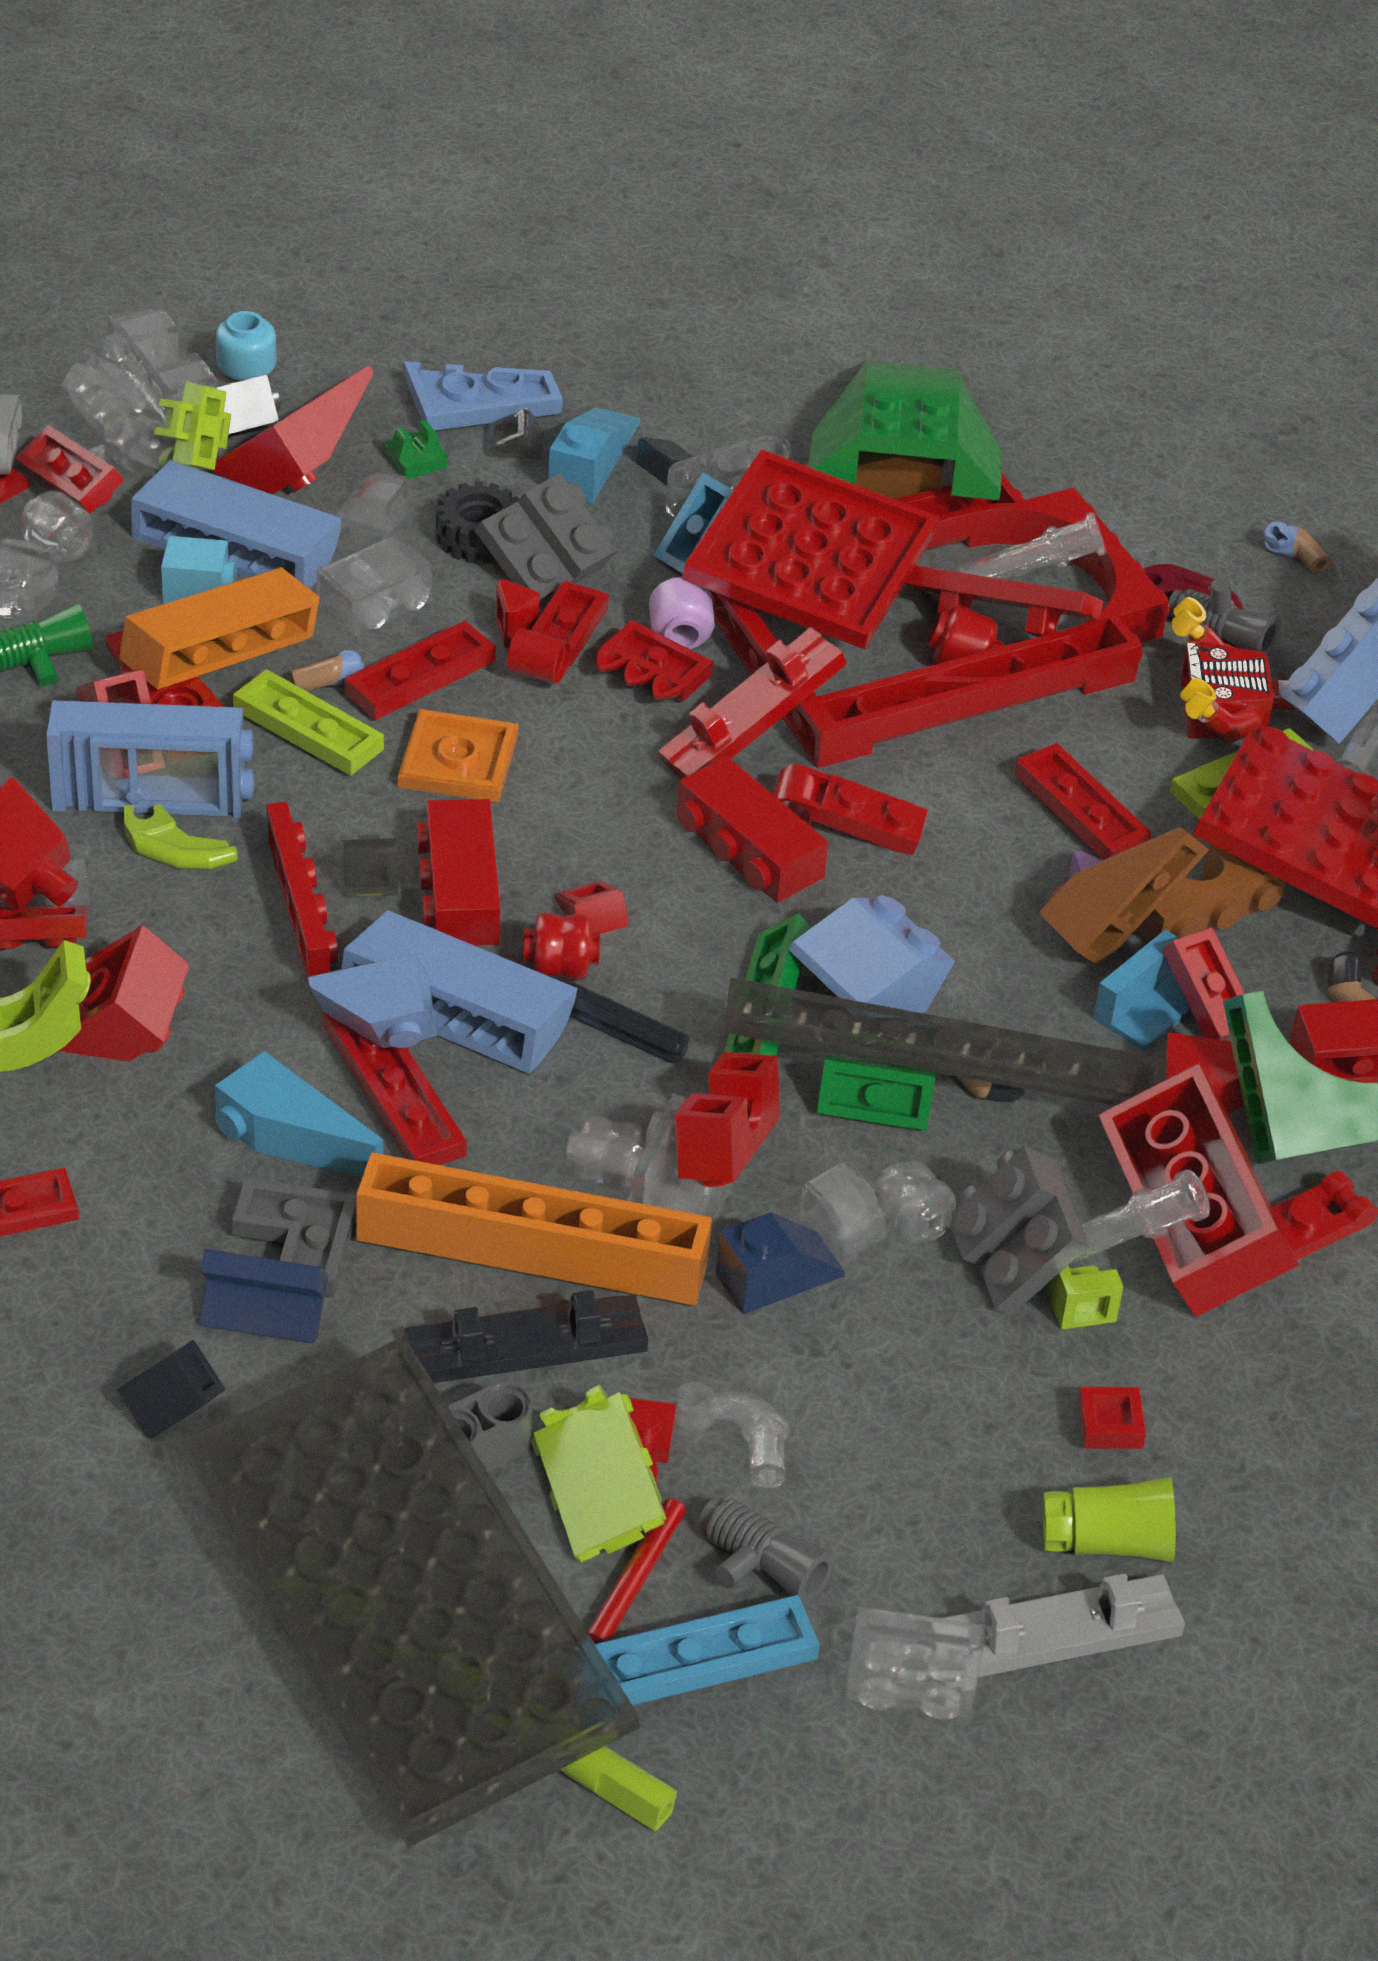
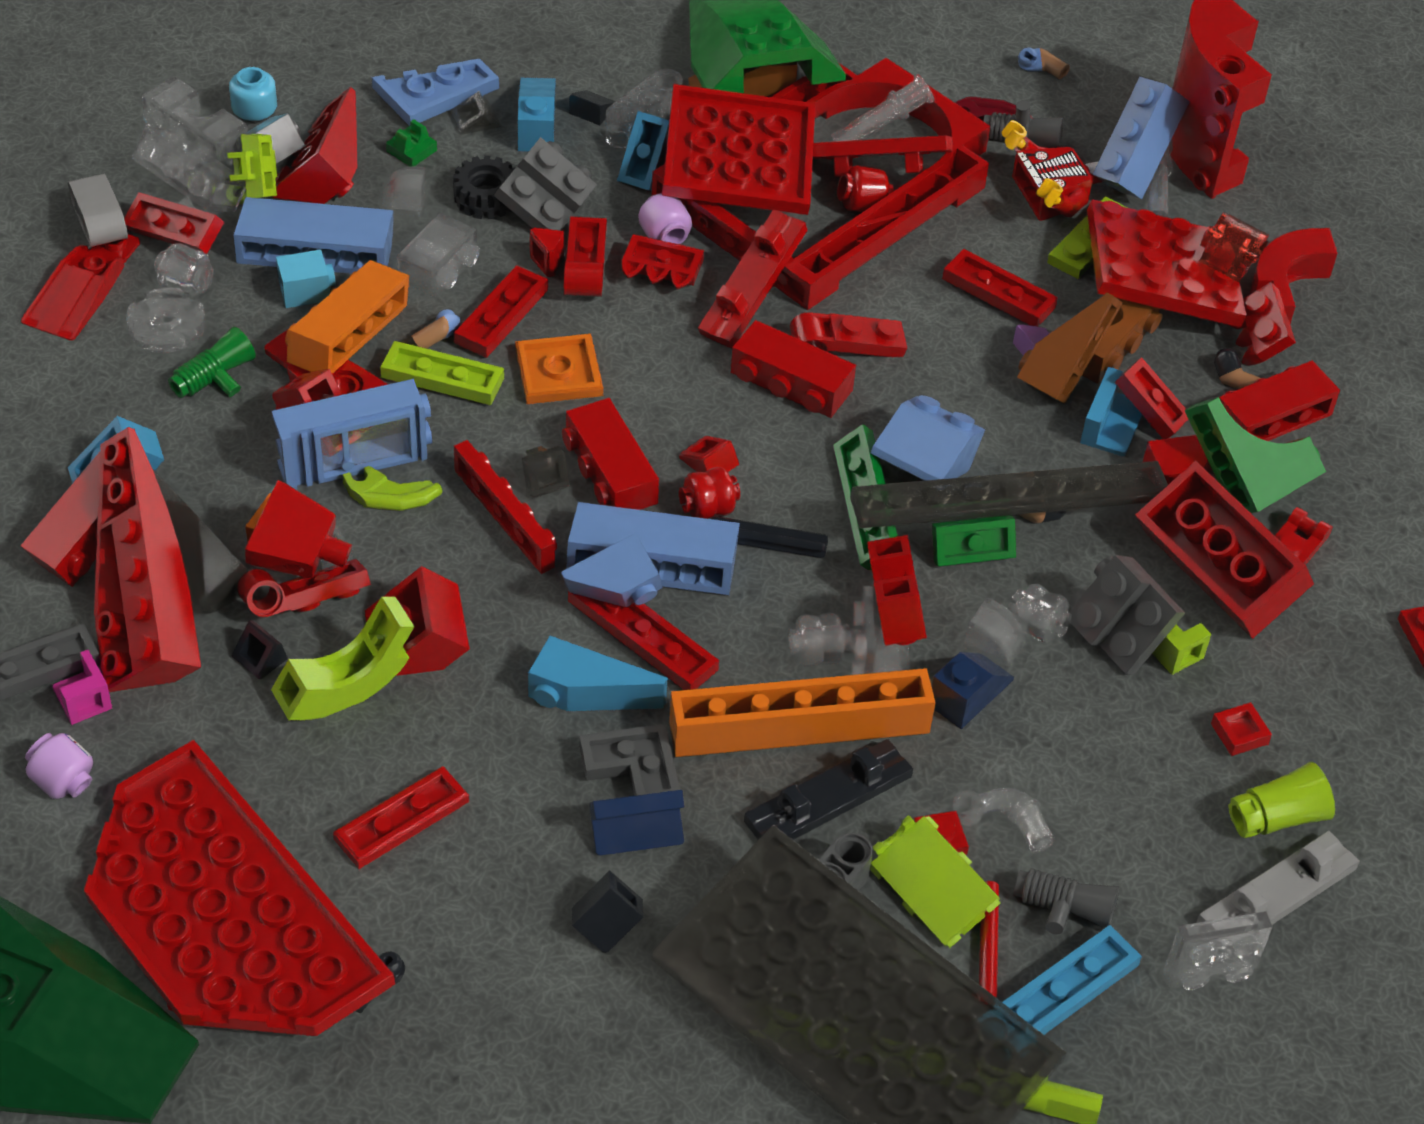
camera: 20 degrees left, 5 degrees up
(1147, 1214) = (1213, 576): clear pin -> none

